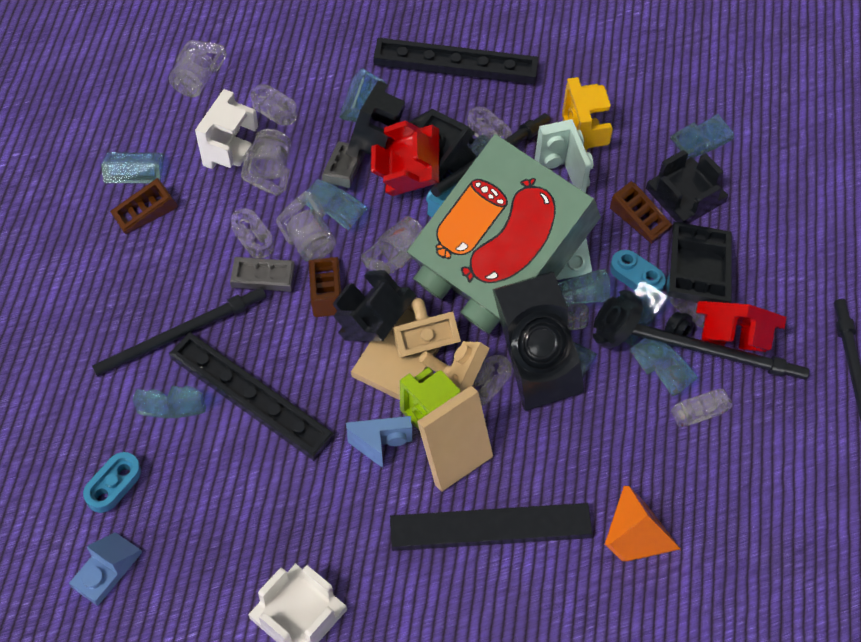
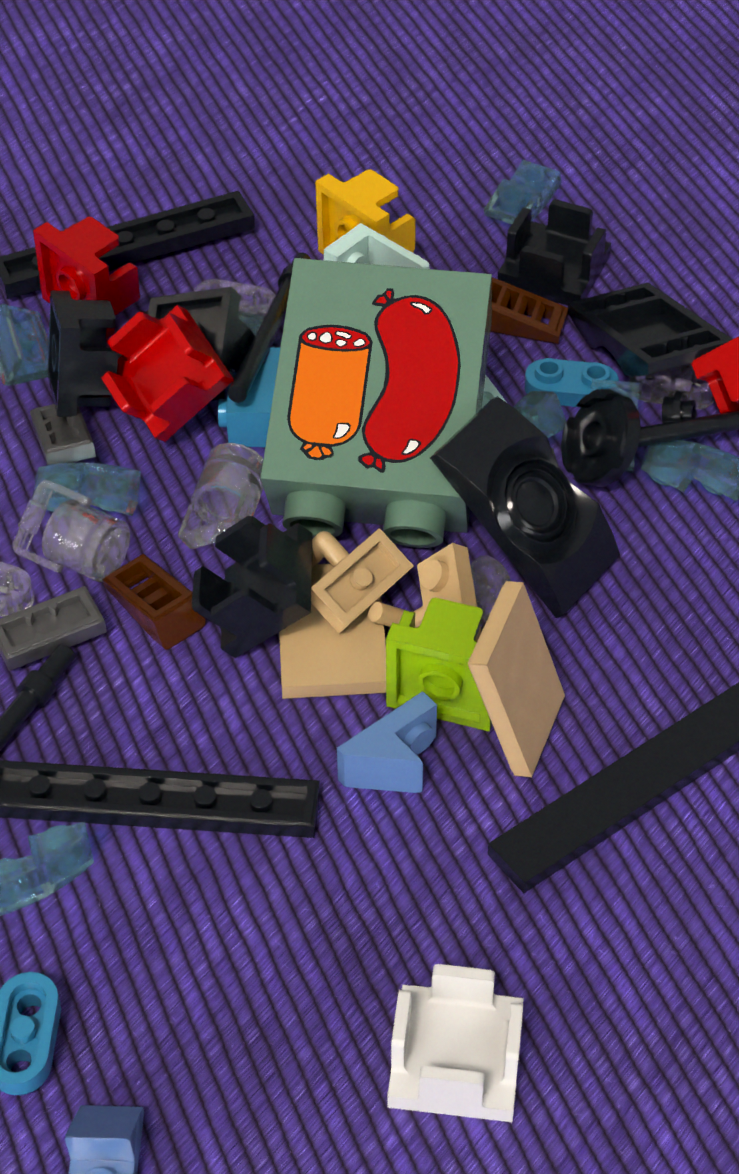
camera: 30 degrees left, 10 degrees down
(406, 62) = (72, 263): none -> red panel

